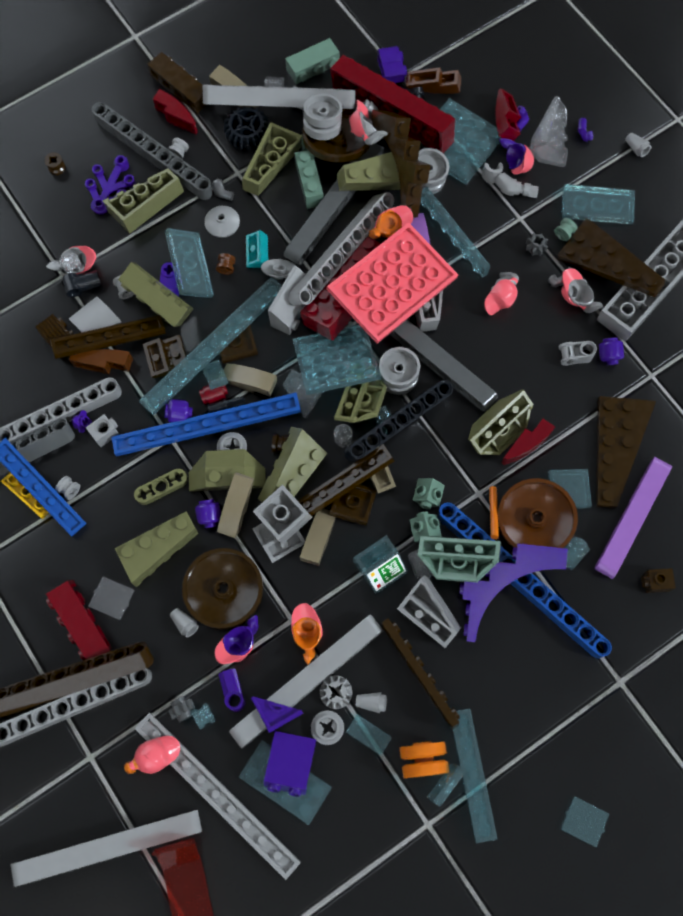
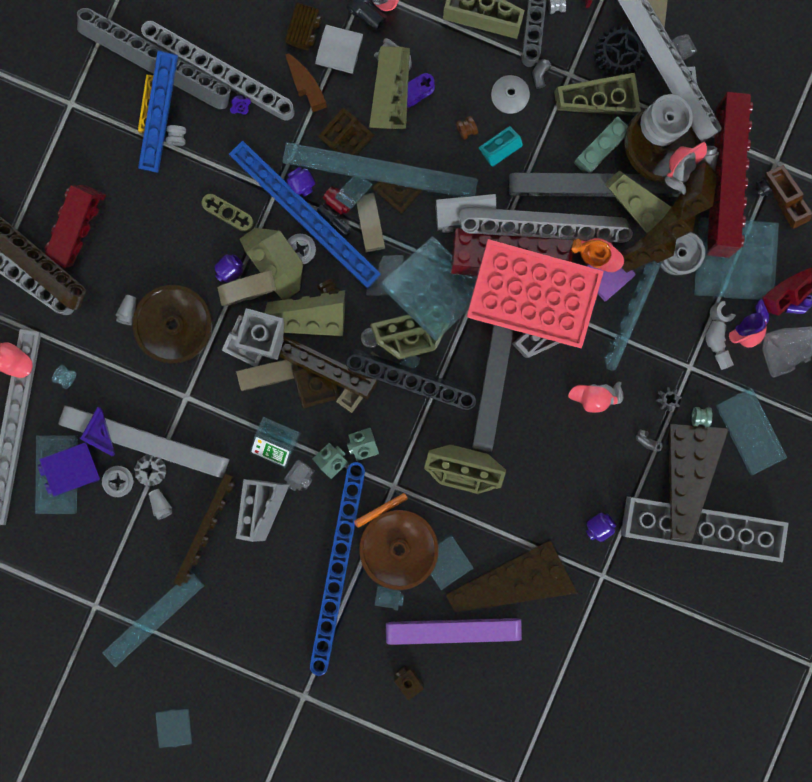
camera: 55 degrees right, 15 degrees up
(96, 426) = (239, 122): light grey brick -> none
(107, 336) = (326, 72): dark brown plate -> none
(111, 598) = (110, 237): clear piece -> none
(155, 546) = (166, 242): olive wedge -> none
(181, 709) = (57, 356): dark grey gear -> none
(189, 263) = (445, 94): clear light blue tile -> none
(231, 688) = (99, 384): dark purple piece -> none
(237, 643) = (133, 366): dark purple hair -> none
(277, 268) = (493, 179): light grey dish -> none
(306, 629) = (180, 416): orange hair -> none
(312, 61) = (735, 66): sand green brick -> none
(368, 734) = (133, 517): clear light blue tile -> none
(391, 64) = (779, 144): dark purple brick -> none
(399, 370) = (459, 361): light grey wheel -> none
(423, 756) = (136, 574): orange wheel -> none
(446, 784) = (128, 603): clear light blue tile -> none
(458, 558) = (315, 505): sand green wedge -> none
(528, 560) = (351, 565): dark purple arch -> none
(529, 442) = (465, 502): dark red slope -> none
(573, 352) = (579, 495): light grey piece -> none
(578, 292) = (640, 465): light grey hair -> none

